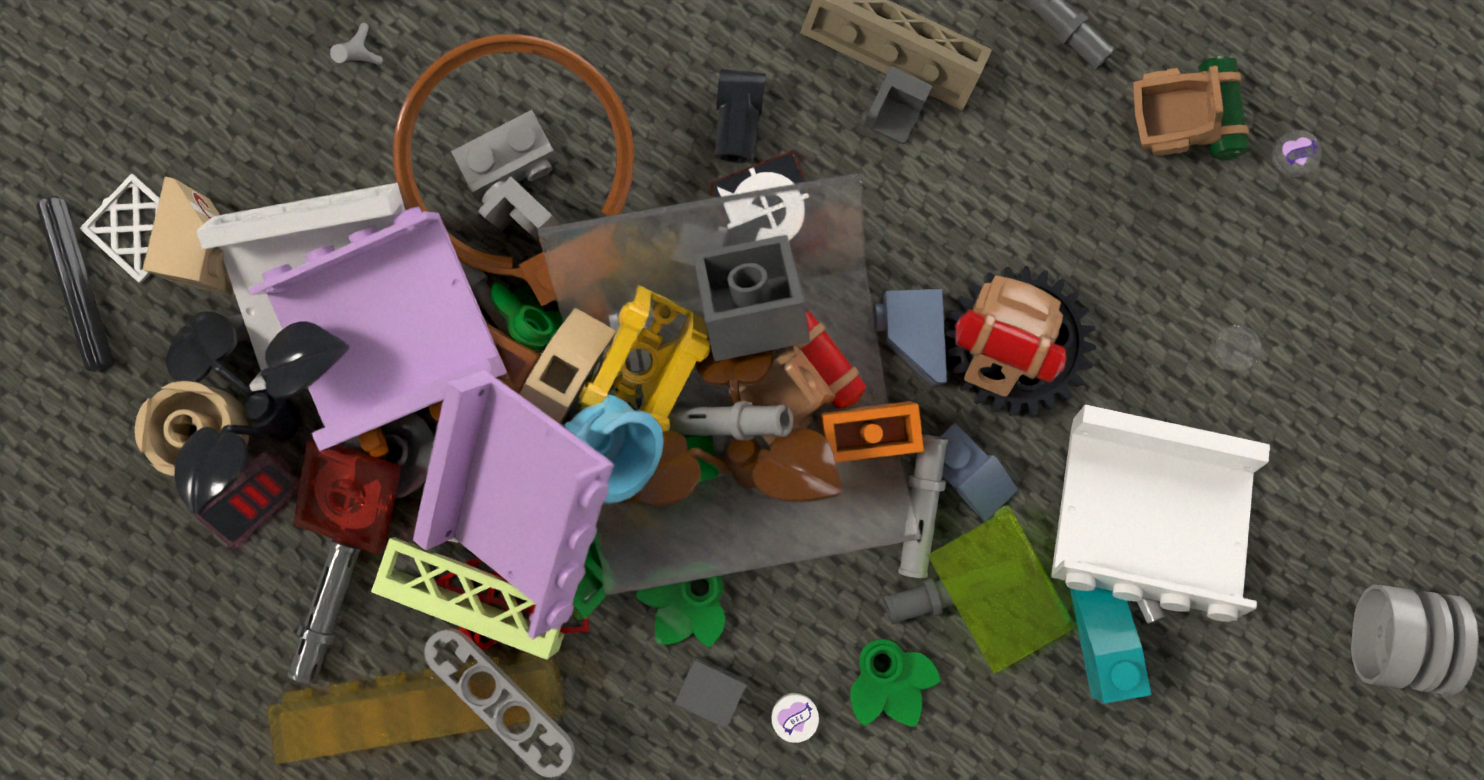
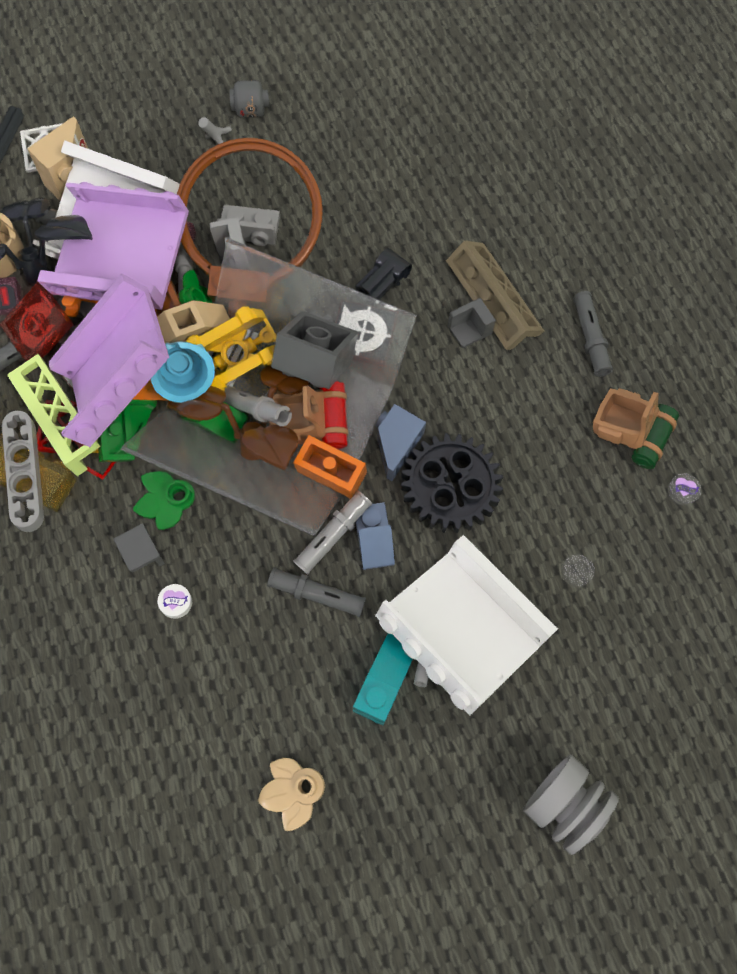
camera: 35 degrees right, 15 degrees down
(894, 689) = (242, 625): green plate -> none
(1001, 590) = (342, 608): clear neon green piece -> none
(1012, 328) = (445, 457): medium nougat piece -> none

